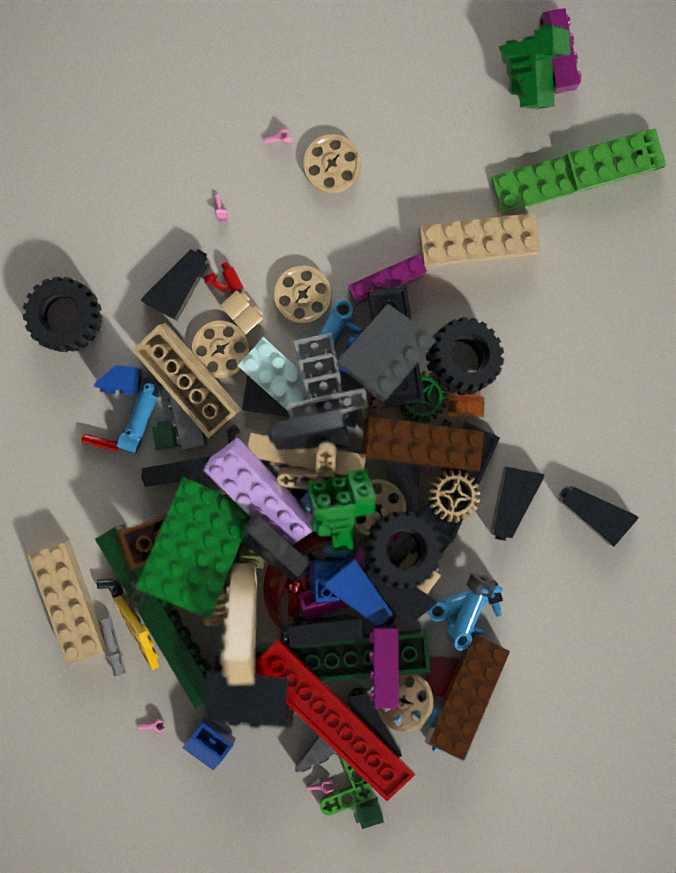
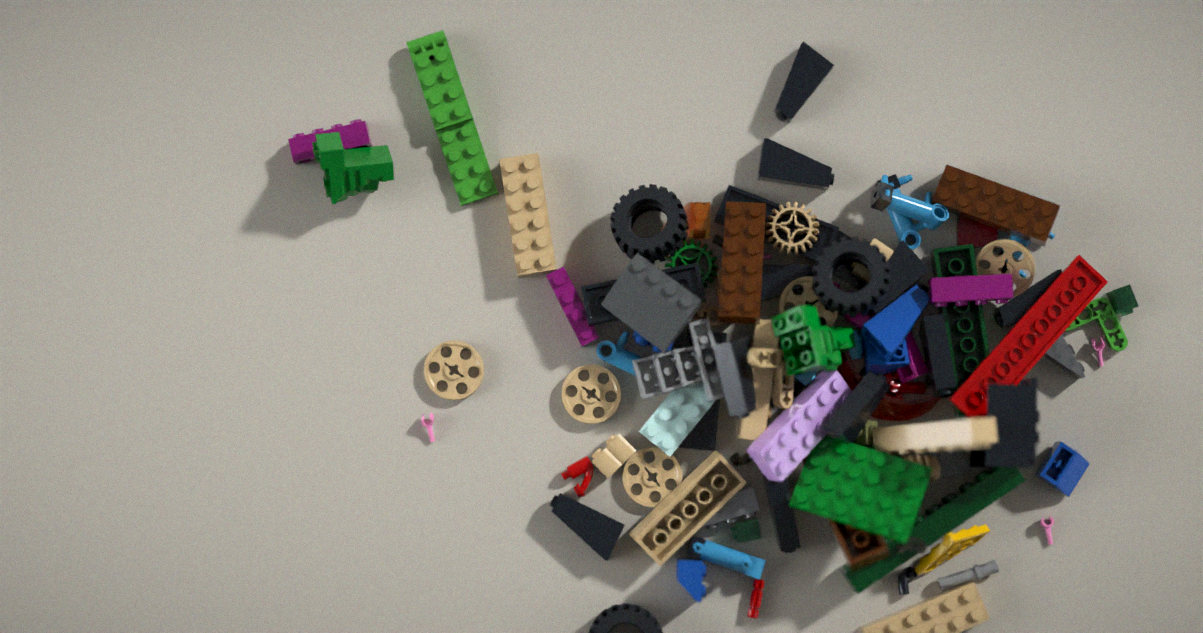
camera: 90 degrees left, 5 degrees down
(222, 215) = (512, 482): bright pink hand -> none

